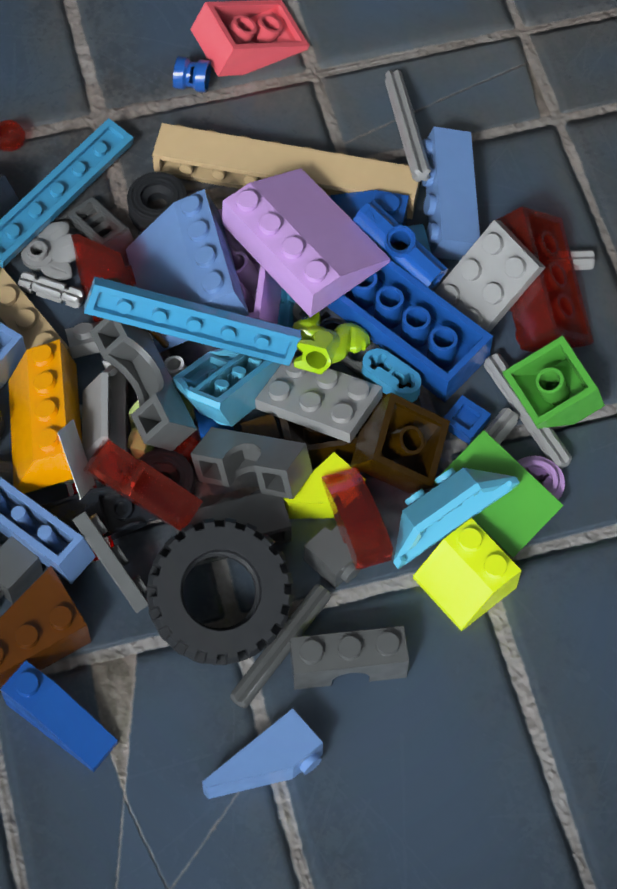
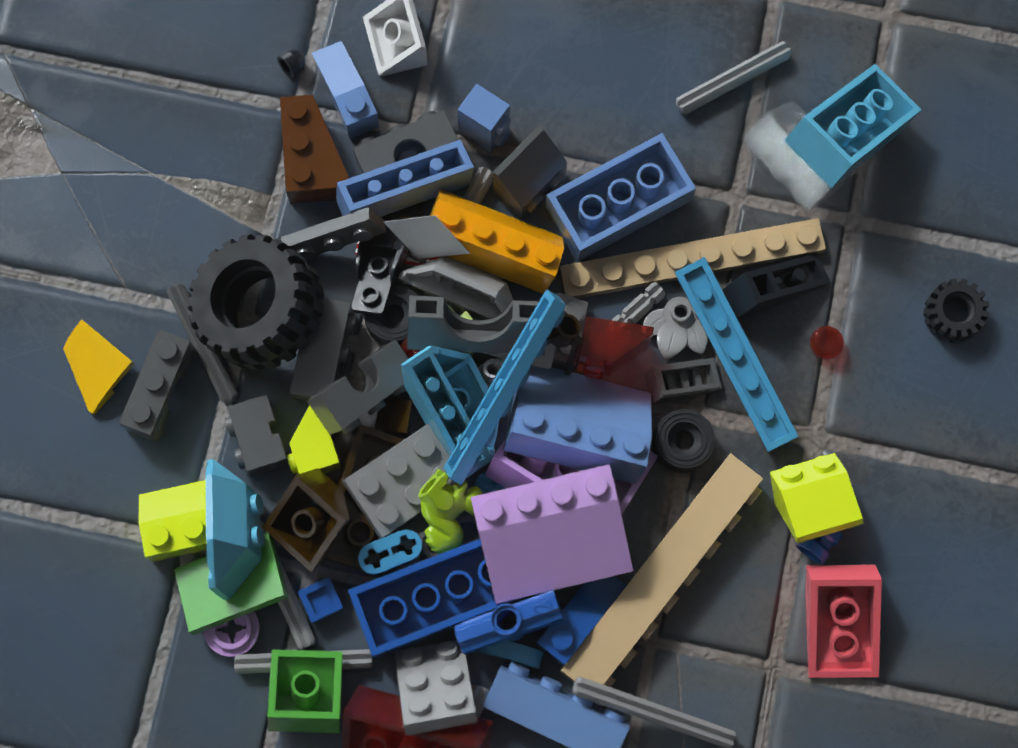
camera: 115 degrees right, 15 degrees up
(57, 715) = (234, 147): blue slope -> none
(142, 485) = (378, 280): clear red slope -> none
(159, 80) = (815, 498): none -> neon yellow slope
(270, 758) = (111, 288): medium blue slope -> none
(358, 518) = (260, 442): clear red slope -> none
(359, 735) = (95, 365): none -> yellow slope

